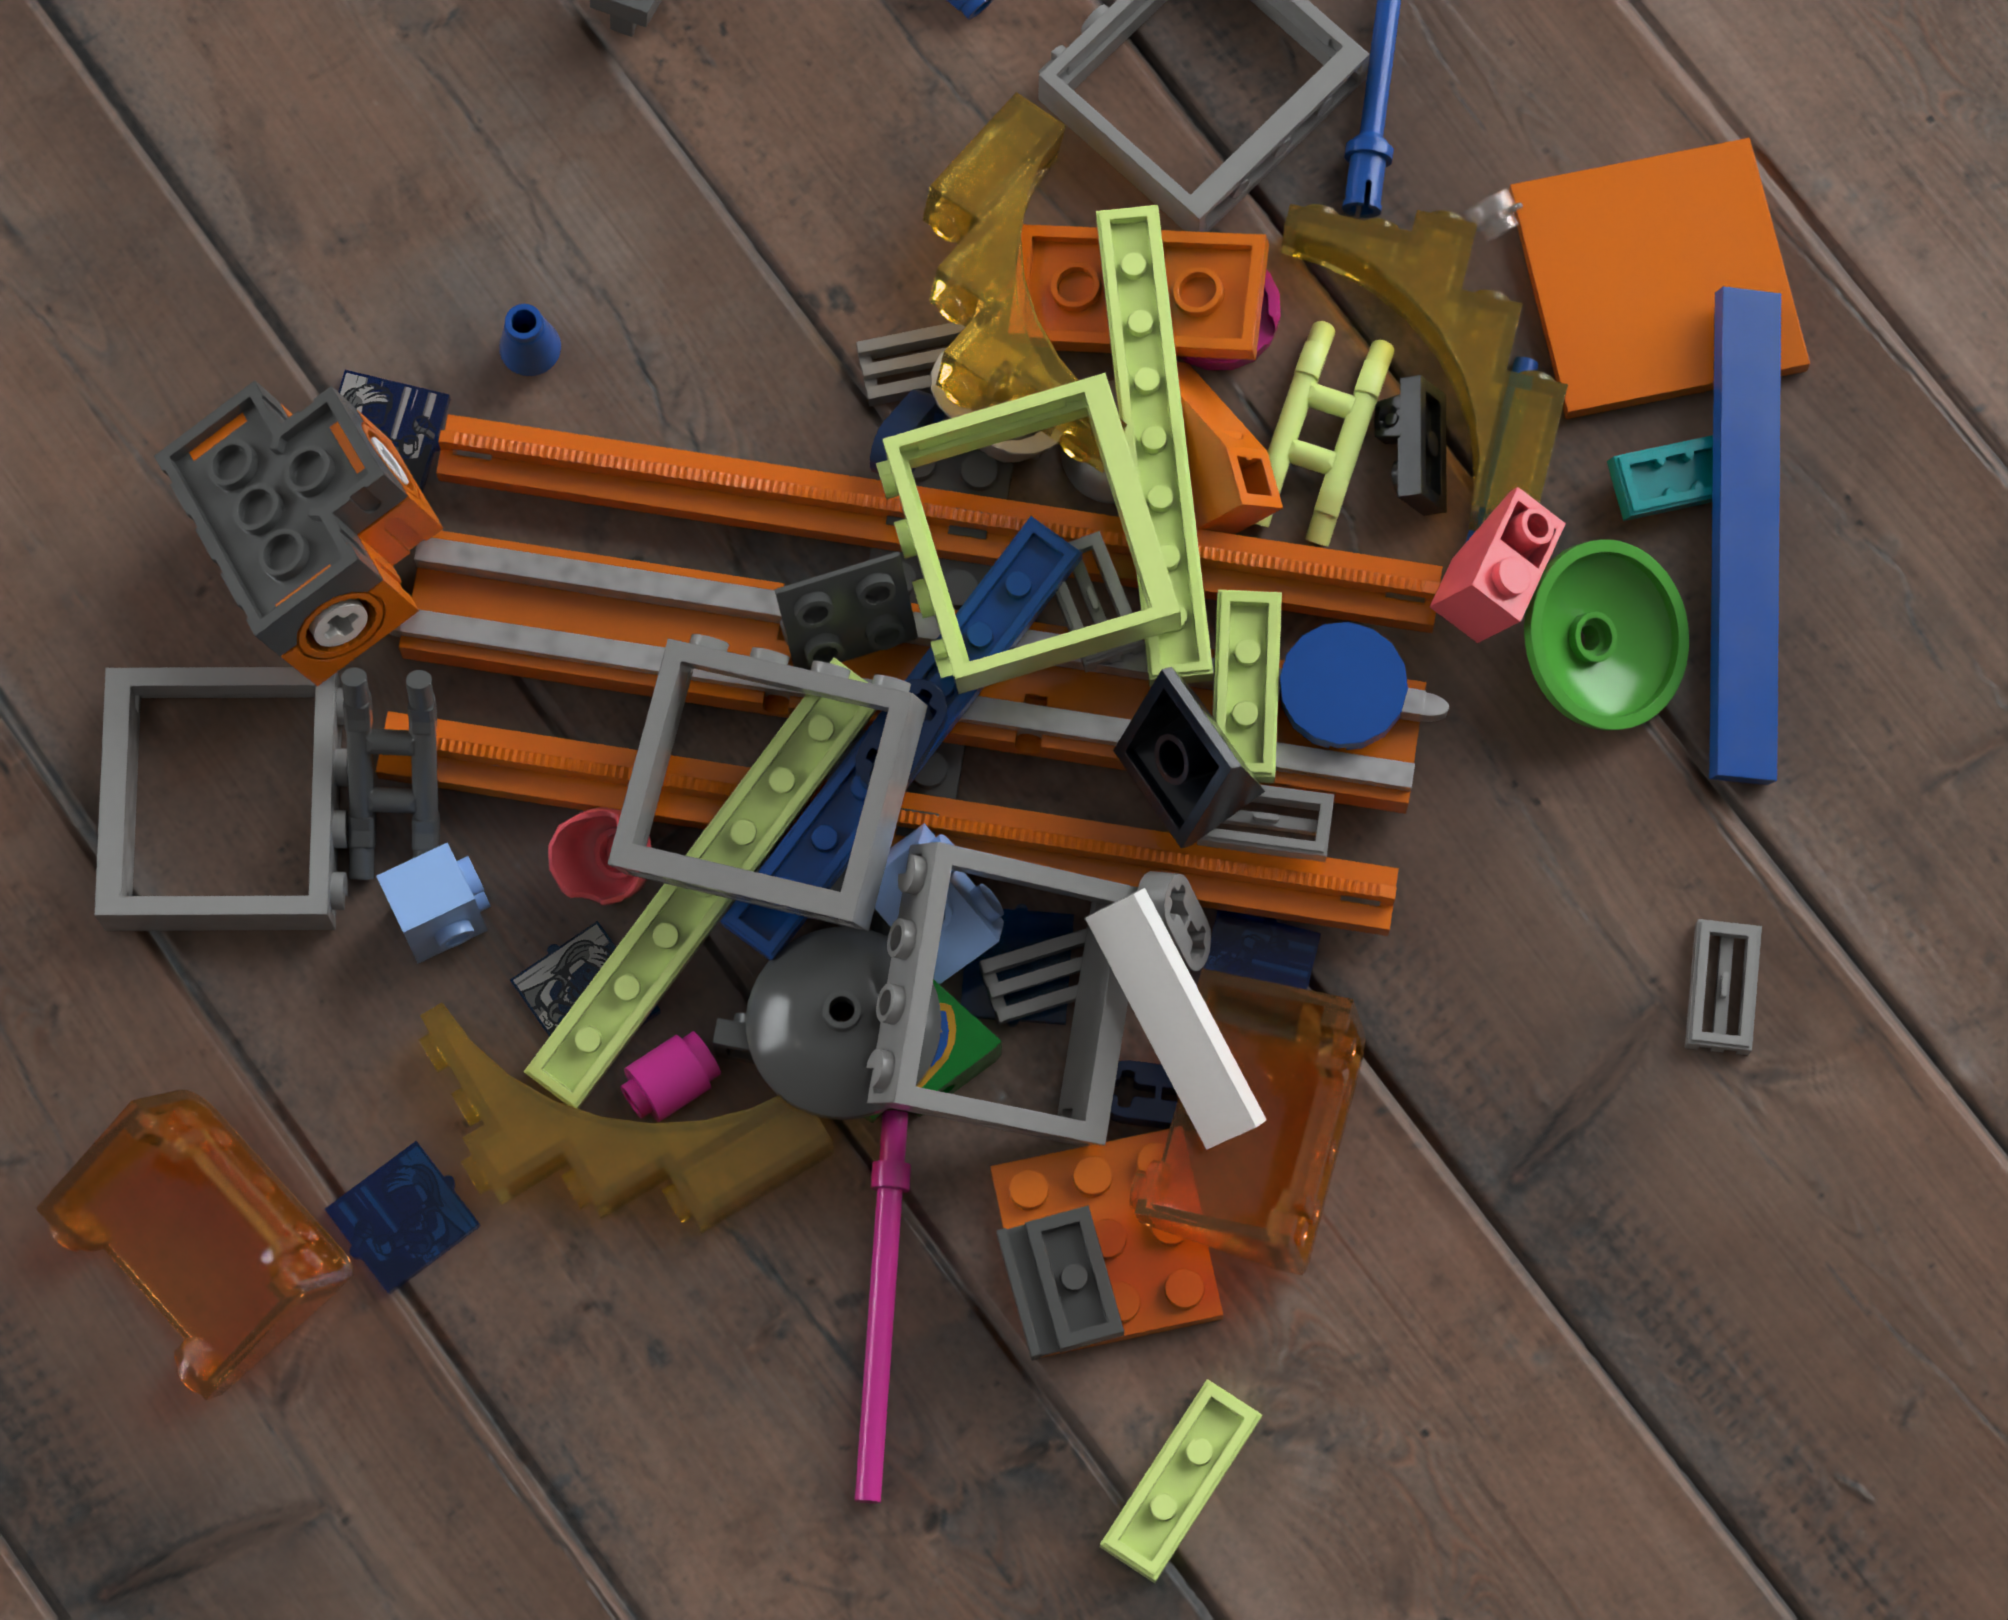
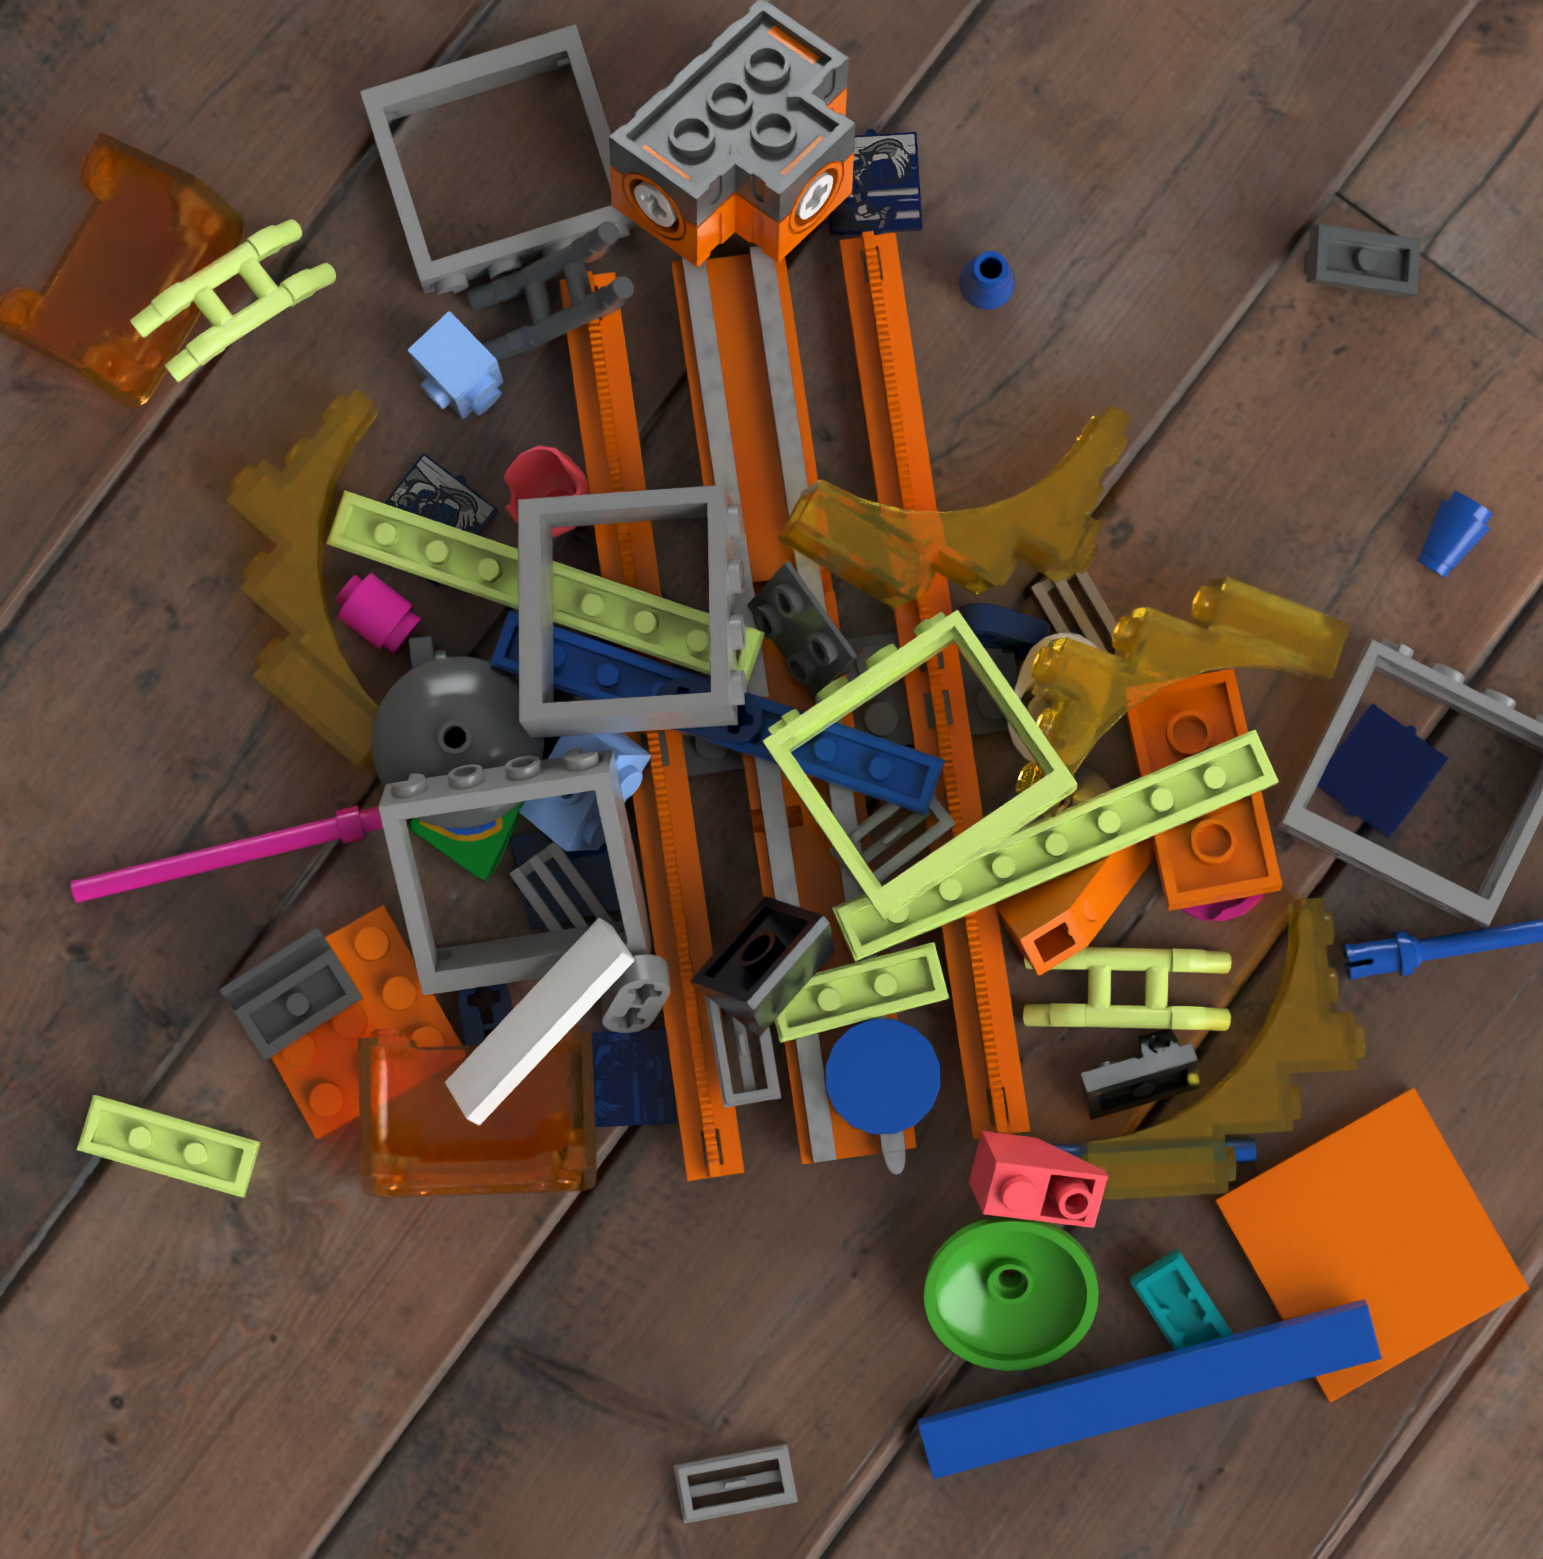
camera: 70 degrees right, 10 degrees up
(304, 1131) = (225, 326): none -> yellowish green piece
(402, 1217) = (196, 433): clear blue piece -> none
(796, 494) = (977, 548): none -> clear yellow arch
(1174, 117) = (1381, 771): none -> clear blue piece
(1494, 215) = (1380, 1081): clear plate -> none

